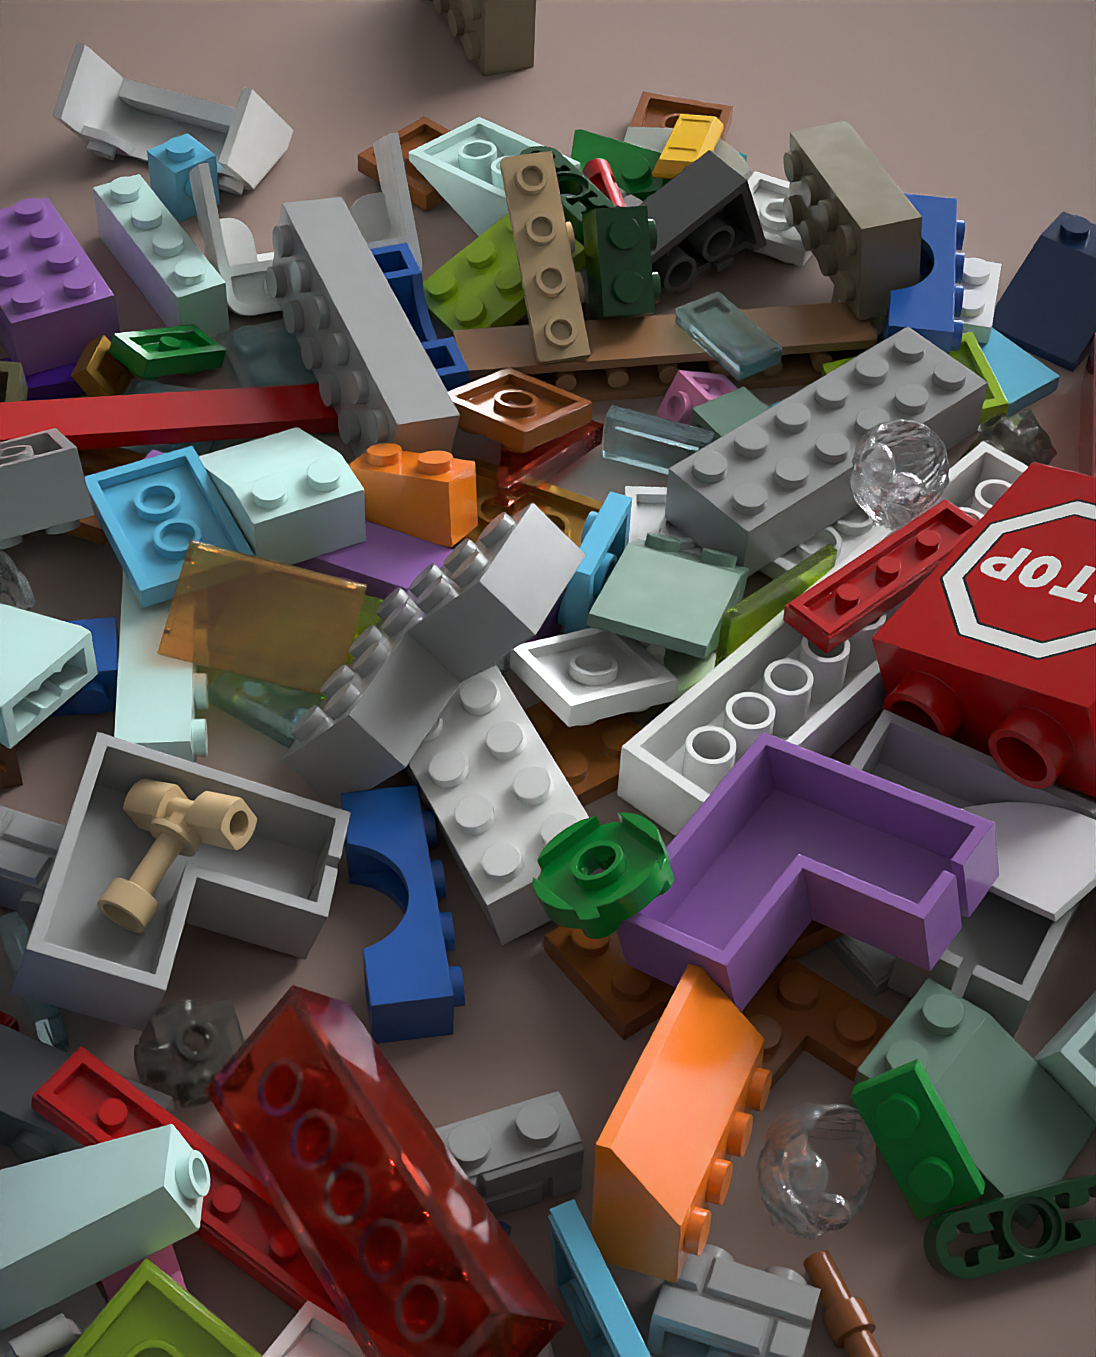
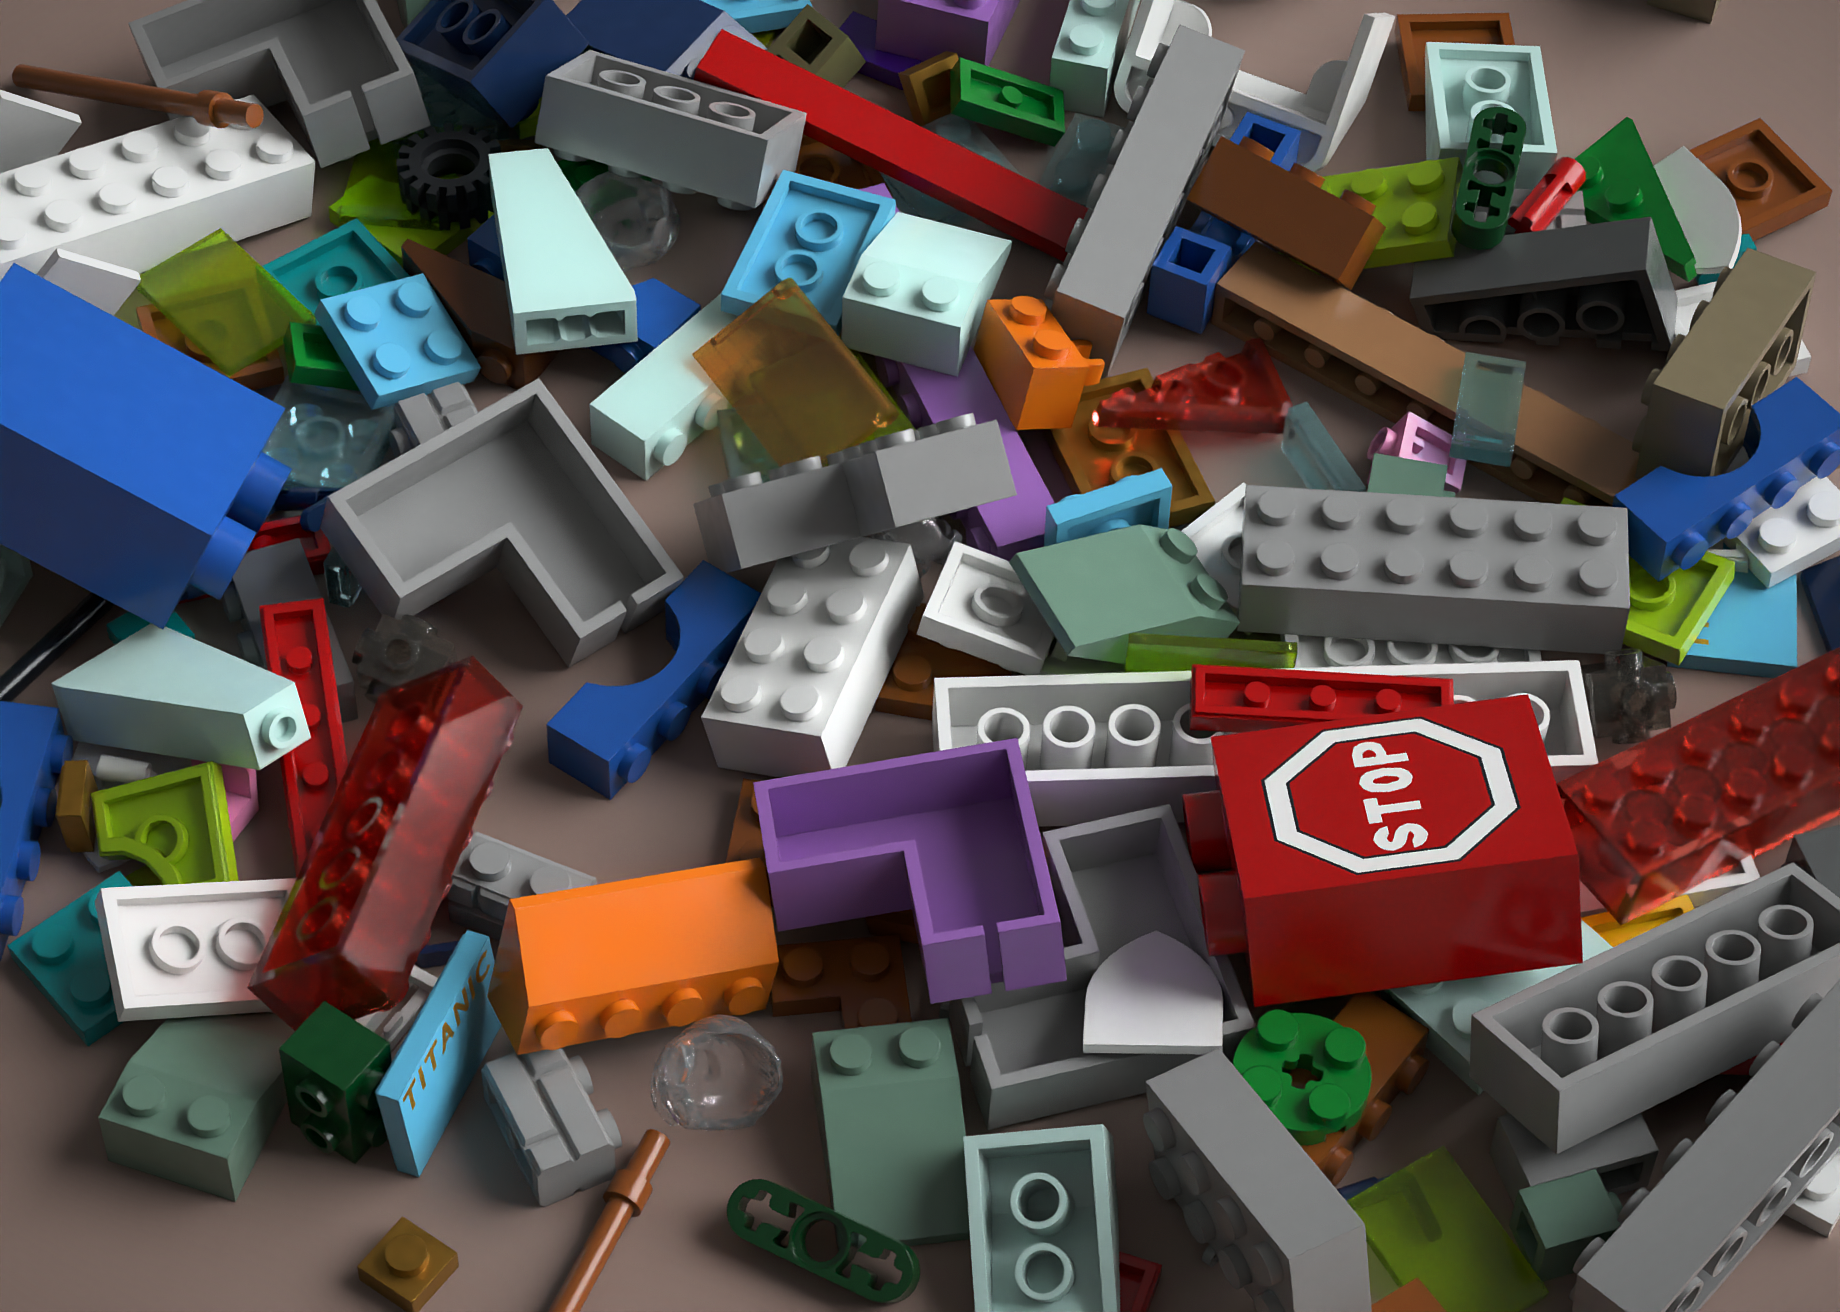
camera: 45 degrees right, 5 degrees up
(178, 830) = (544, 492): tan bar -> none
(458, 290) = (1288, 210): none -> dark orange brick
(518, 410) = (1210, 348): dark orange plate -> none
(545, 258) = (1373, 226): tan bracket -> none
(598, 903) = (774, 747): green plate -> none
(620, 263) = (1445, 274): dark green brick -> none
(687, 142) = (1689, 202): yellow tile -> none
(898, 472) = (1422, 623): clear hair -> none
(918, 1140) = (800, 1114): green plate -> none

